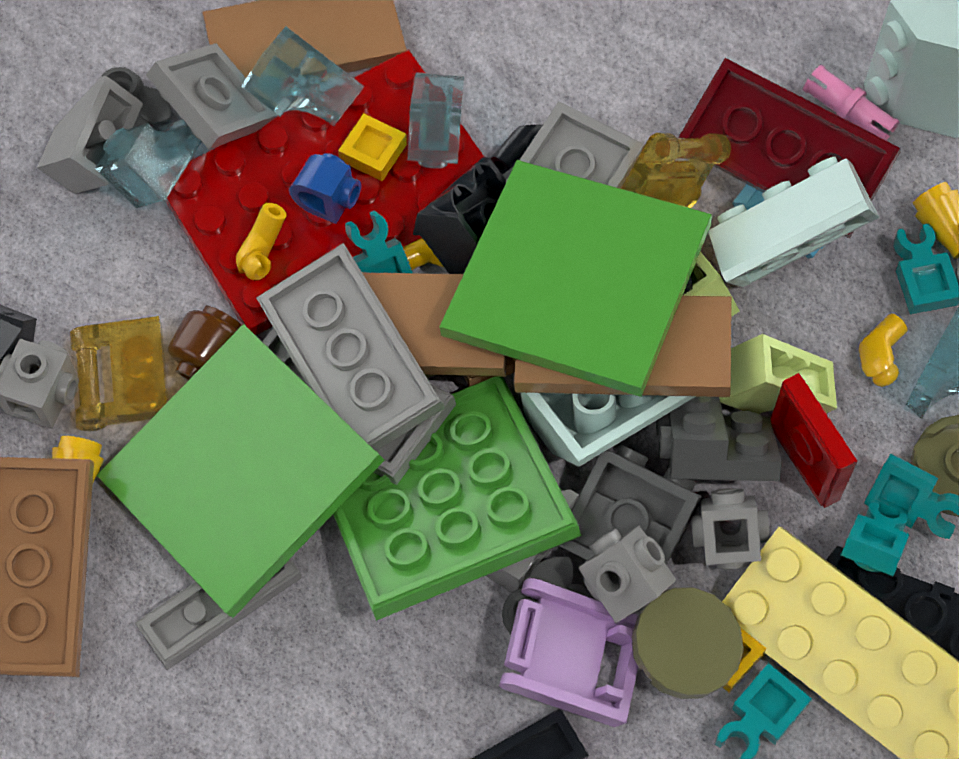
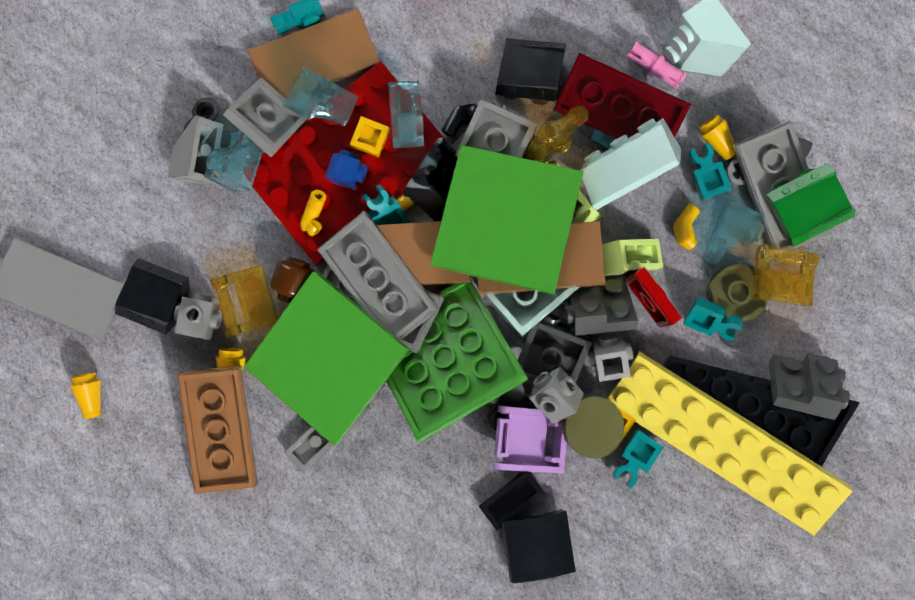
camera: 10 degrees left, 20 degrees up
(646, 89) = (530, 70): none -> black slope
(877, 540) = (693, 353): teal plate -> none

